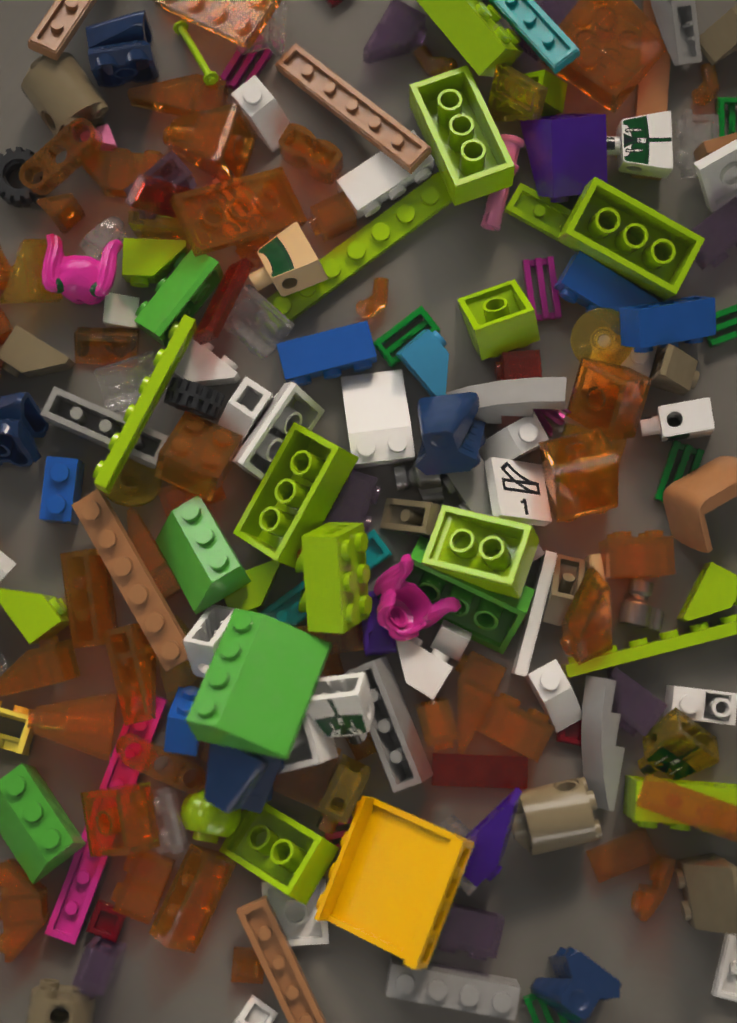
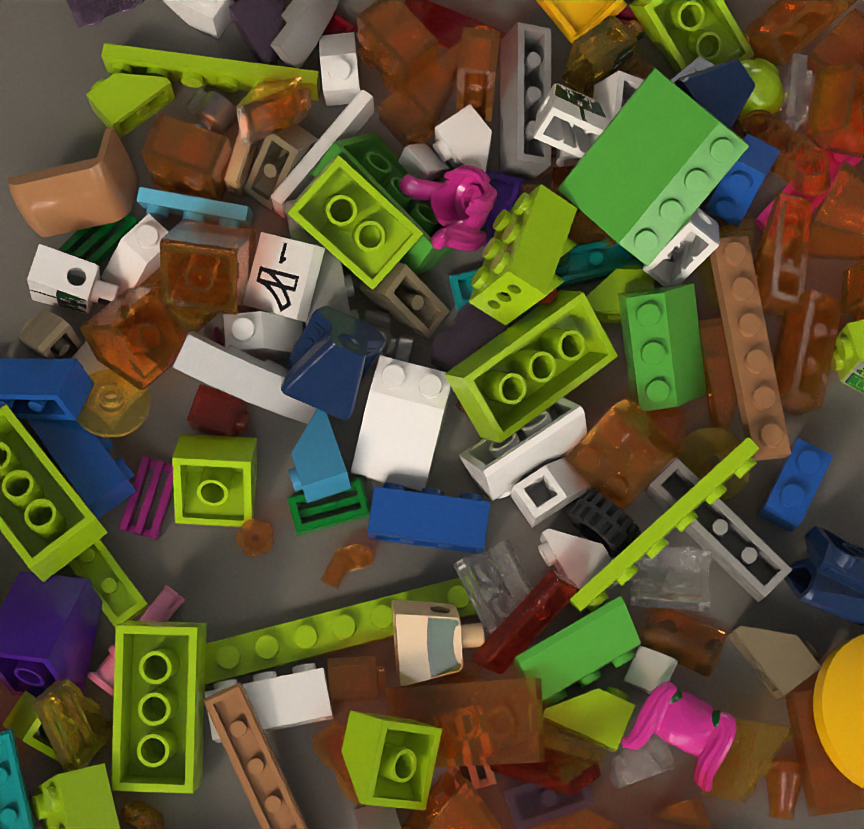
camera: 155 degrees left, 10 degrees down
(280, 159) = (390, 759): none -> lime slope
(446, 282) = (265, 541): none -> clear orange plate
(638, 467) = (136, 255): none -> white slope
(640, 519) = (193, 208): none -> medium azure plate

